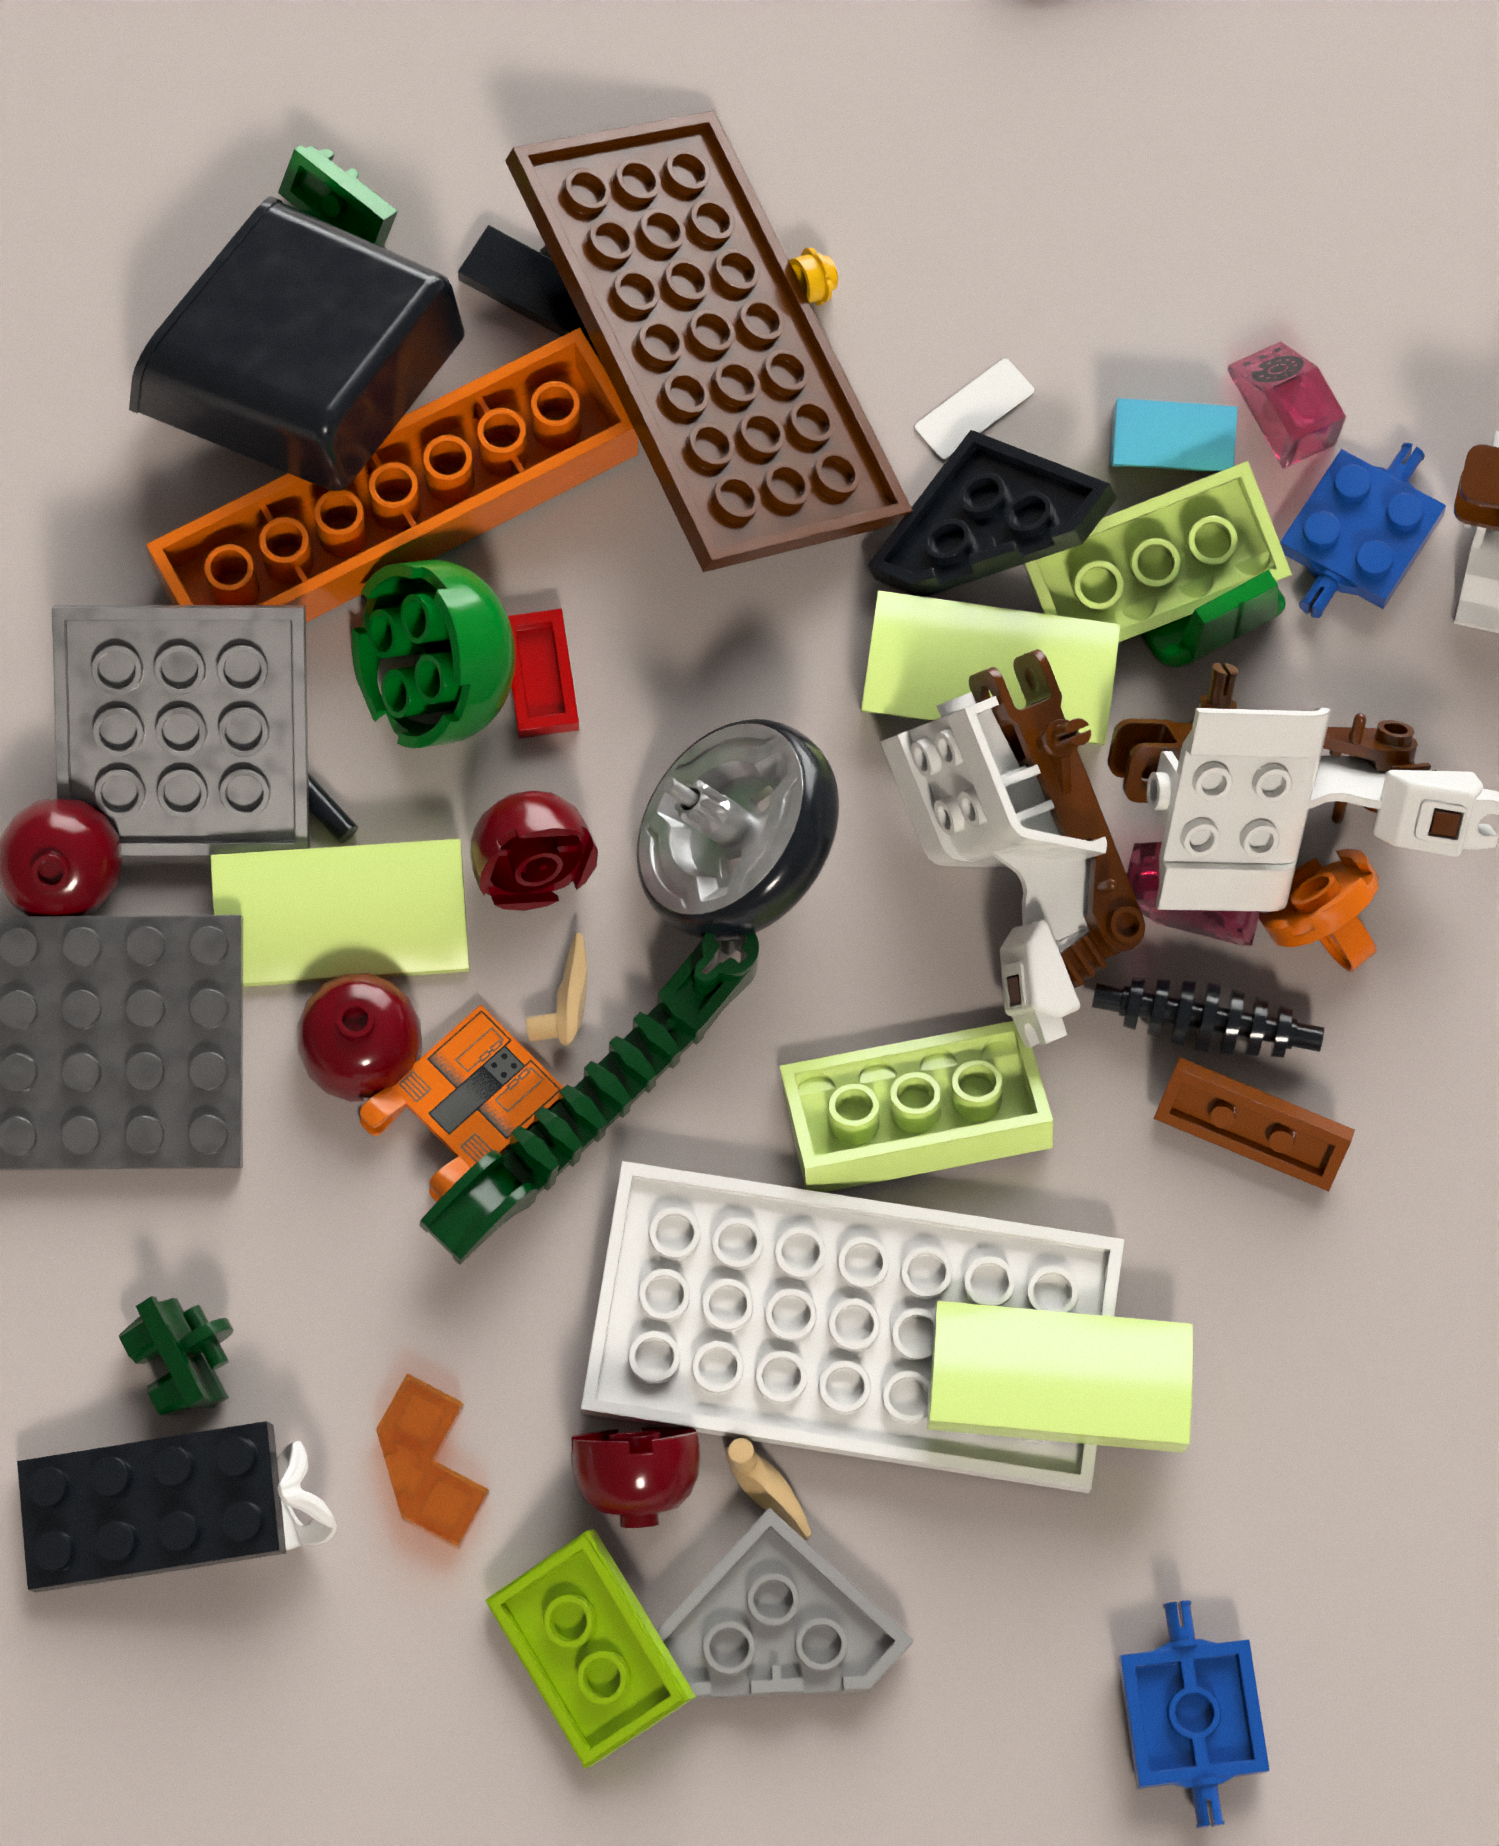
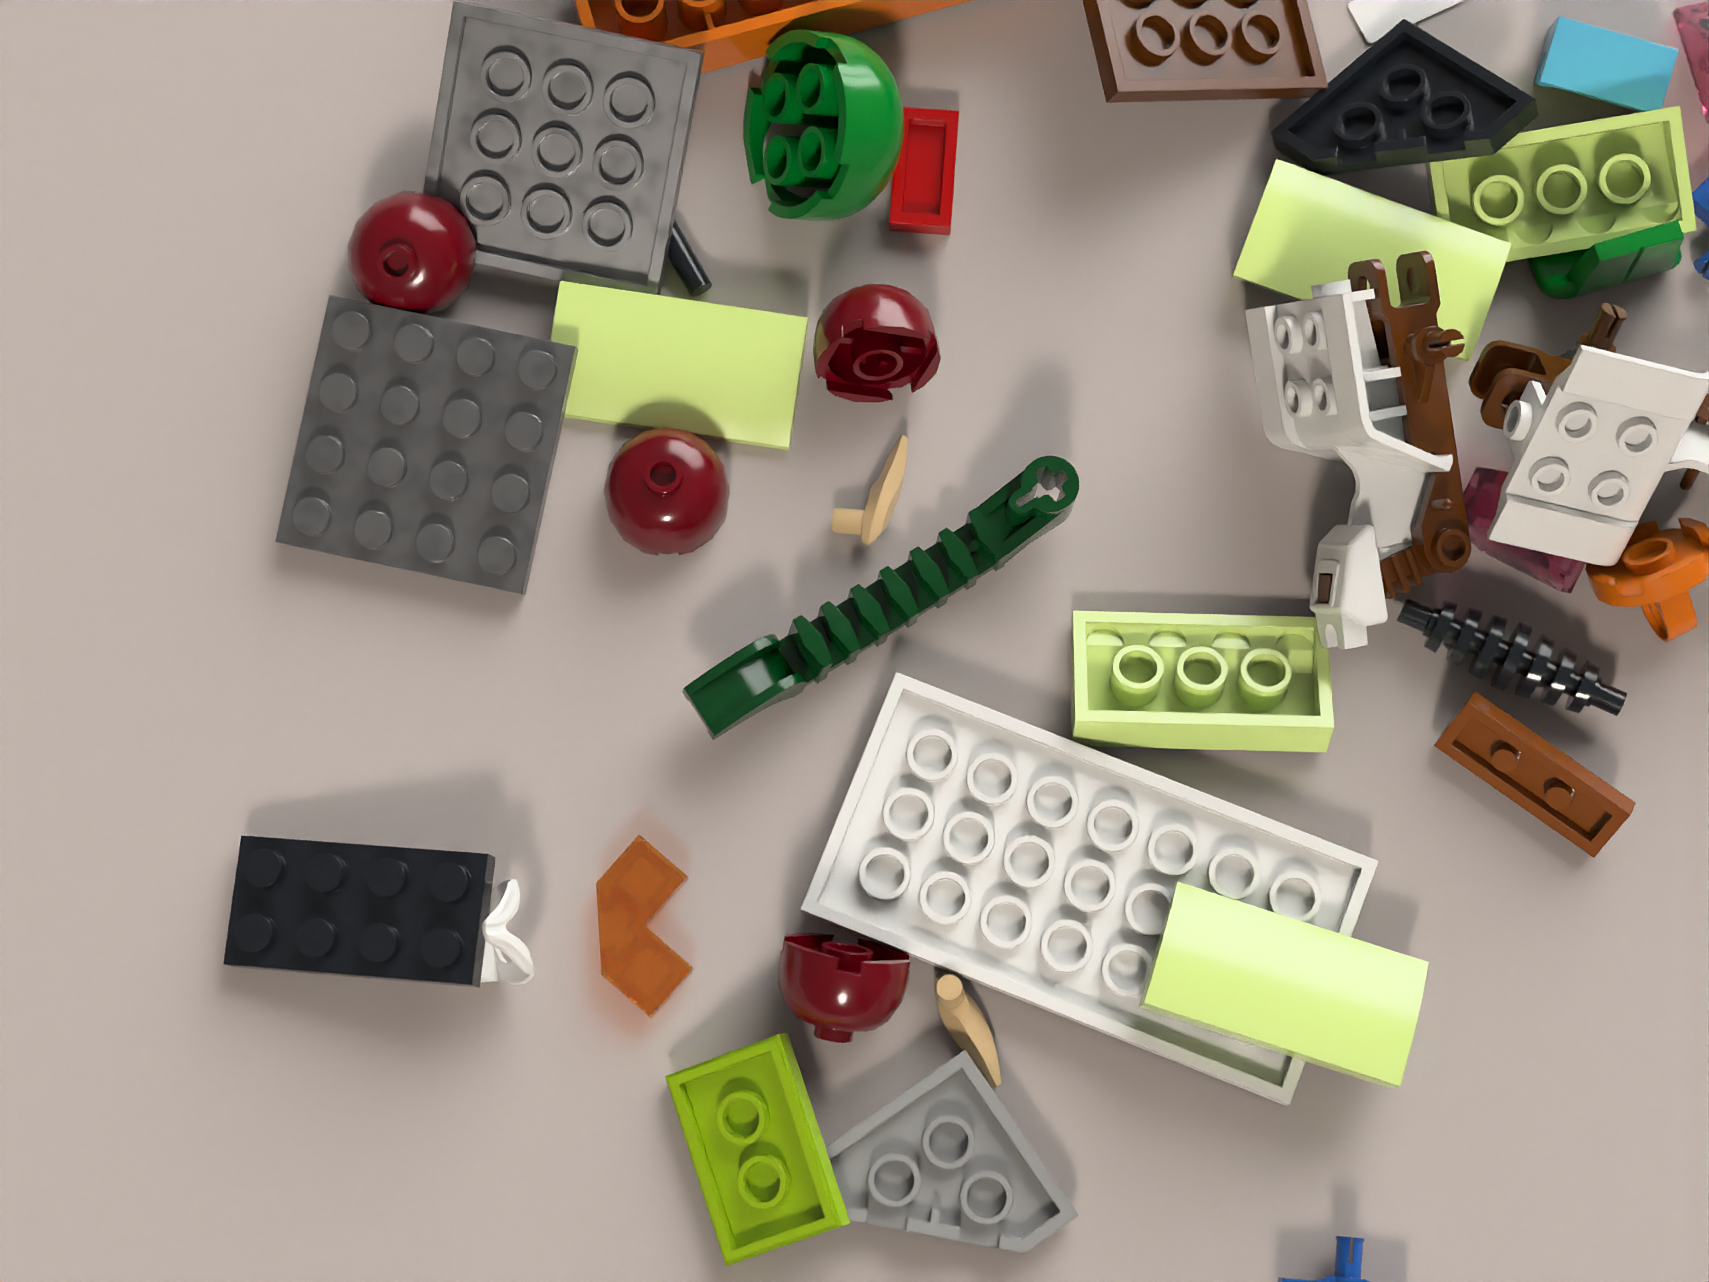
camera: 15 degrees right, 5 degrees up
(187, 1347) = (429, 764): dark green hips -> none
(467, 1094) = (760, 571): orange flag -> none
(710, 815) = (1059, 348): flat silver wheel -> none

